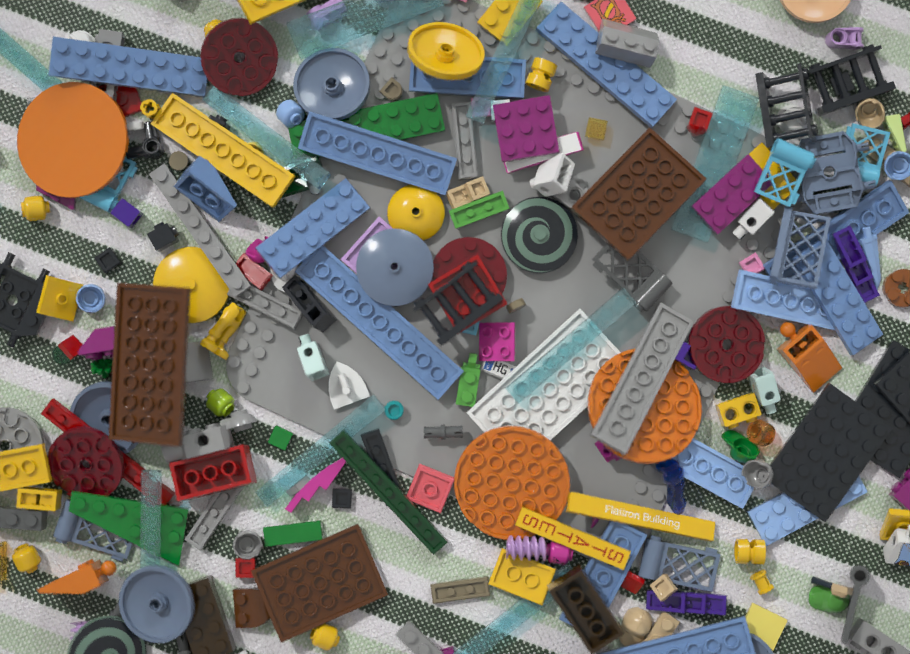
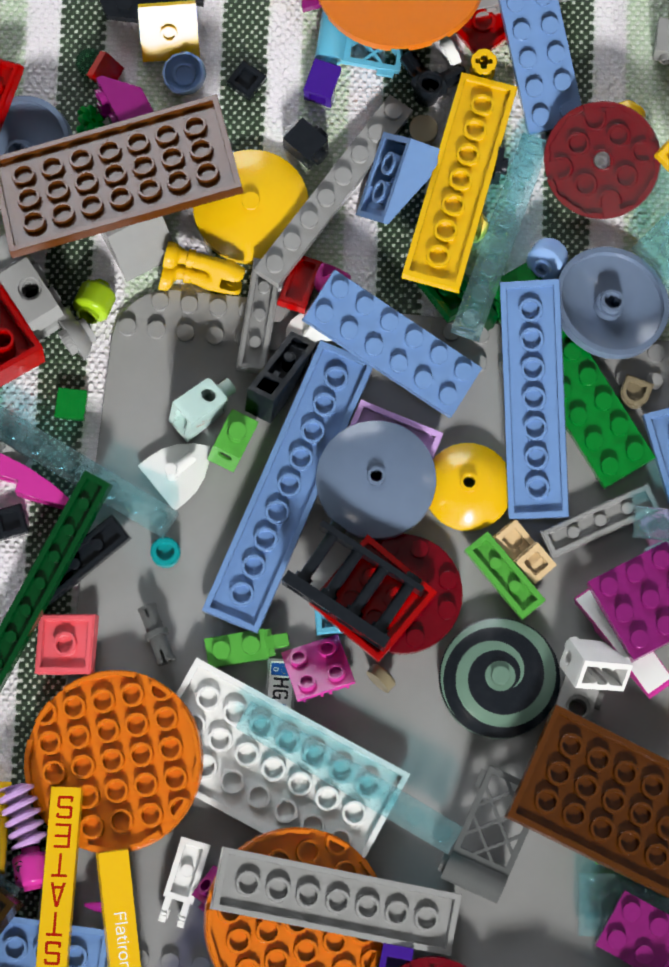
camera: 75 degrees right, 10 degrees down
(339, 345) = (232, 440): none -> bright green torso
(595, 462) = (184, 877): none -> white hinge

